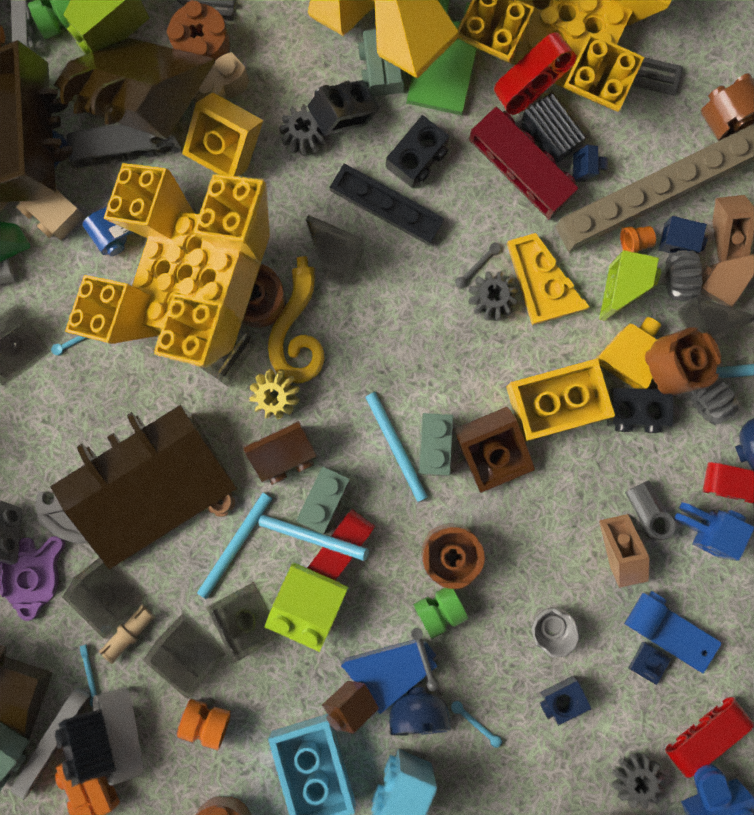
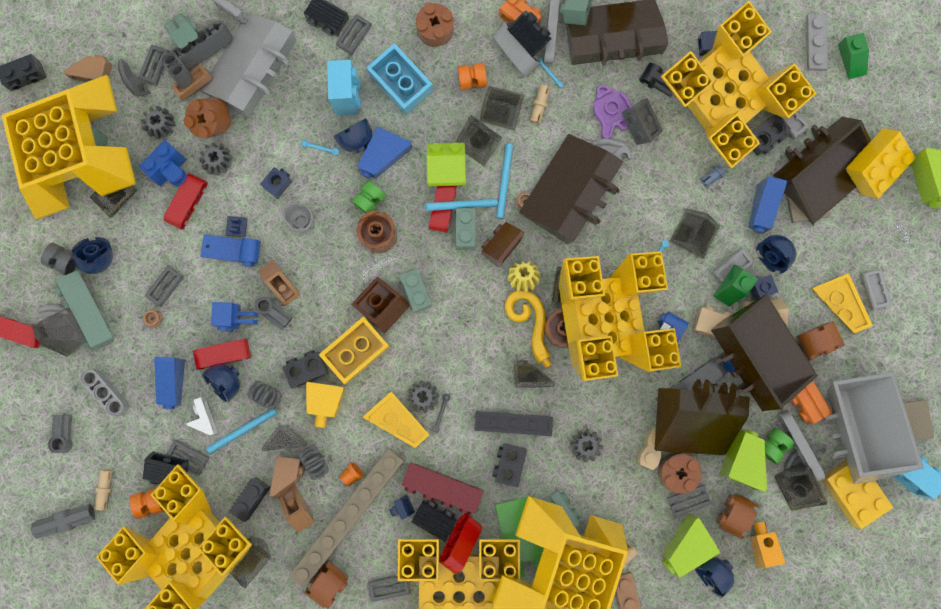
camera: 150 degrees right, 0 degrees up
(103, 596) = (564, 118): clear smoke slope -> none
(222, 136) = (632, 414): yellow brick -> none
(343, 106) = (565, 472): black brick -> none
(350, 707) = (395, 121): reddish brown brick -> none
(396, 446) = (437, 280): medium azure bar -> none
(417, 635) = (376, 178): dark grey hinge -> none
(627, 280) = (345, 439): lime slope -> none
(683, 235) = (323, 488): dark blue brick -> none
(683, 361) = (292, 405): dark orange brick -> none

